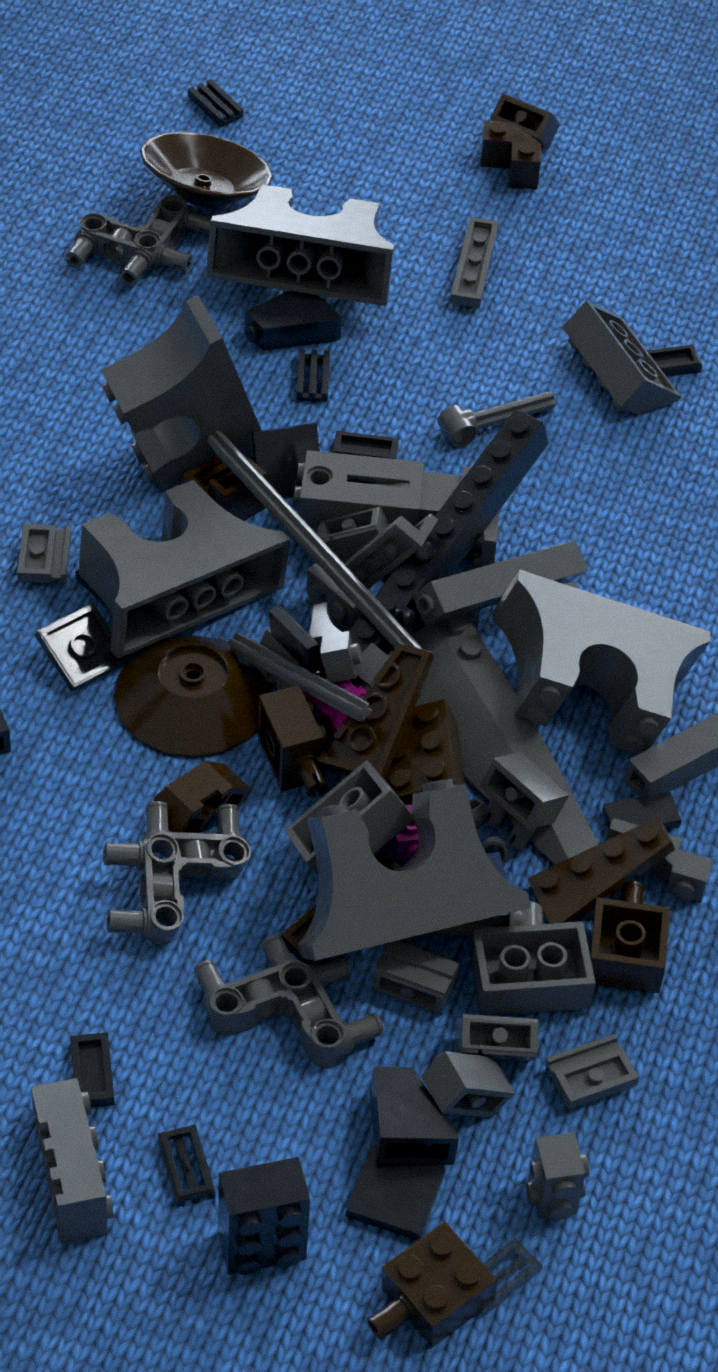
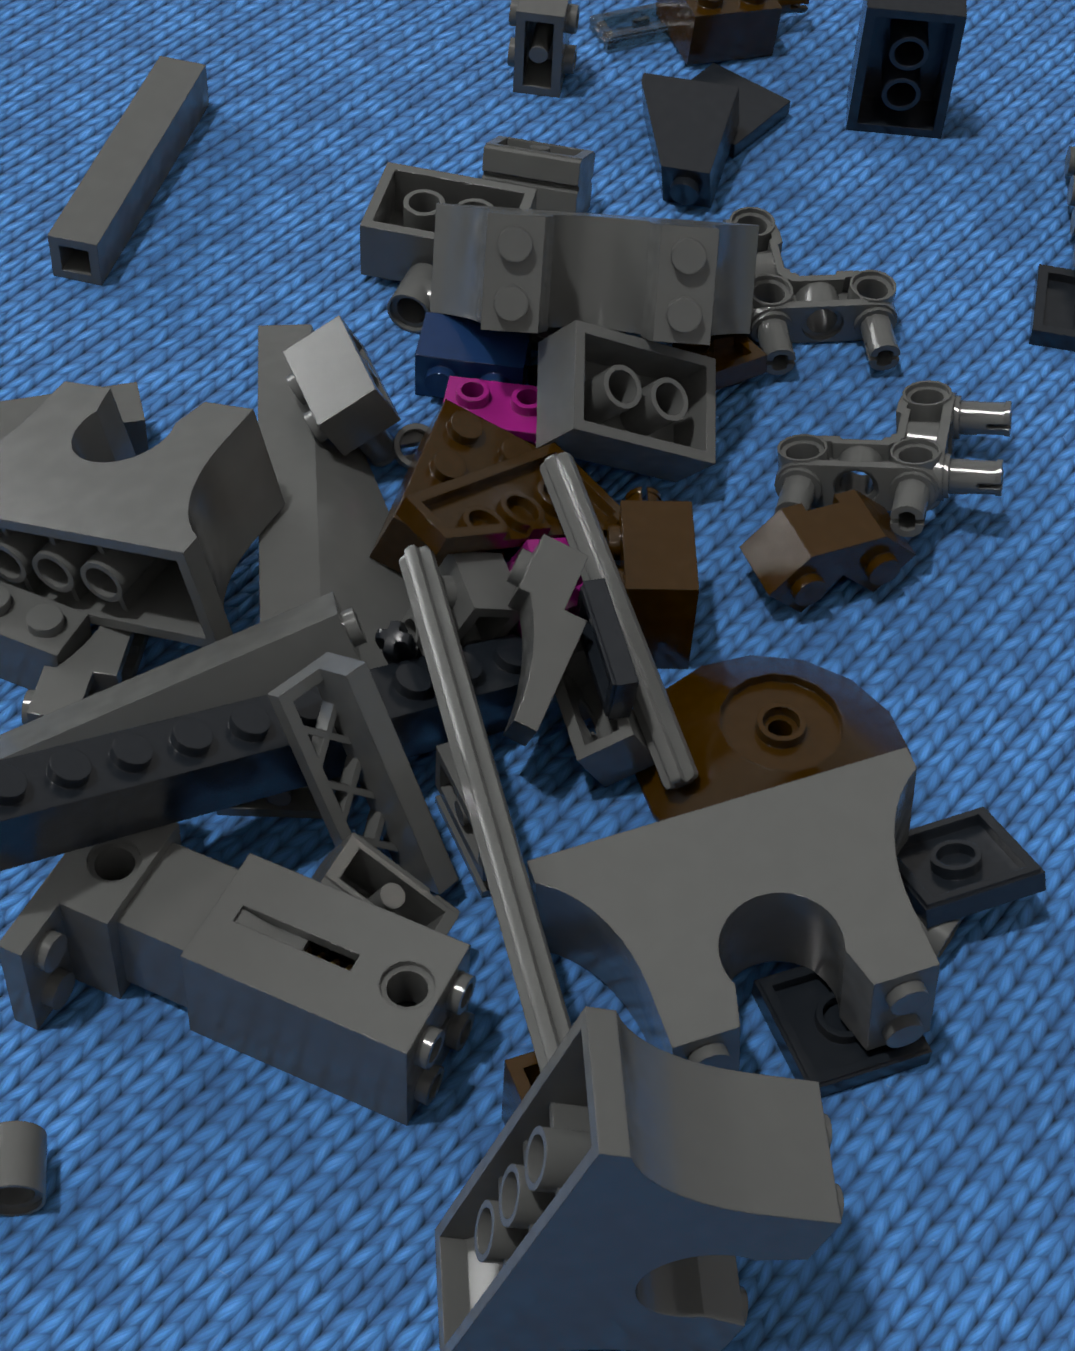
camera: 160 degrees left, 0 degrees up
(44, 554) = (988, 1104): dark grey plate -> none
(193, 1192) = (963, 214): black tile -> none
(281, 451) = (419, 1145): black tile -> none
(365, 445) = (231, 1191): black tile -> none
(467, 1084) = (610, 121): dark grey brick -> none
(502, 846) = (410, 397): dark grey hinge -> none
(575, 884) = (283, 297): dark brown wing -> none
(591, 1071) = (433, 141): dark grey plate -> none
(629, 941) = (299, 228): dark brown brick -> none
(643, 810) = (167, 393): black tile -> none
(680, 870) = (164, 299): dark grey slope -> none

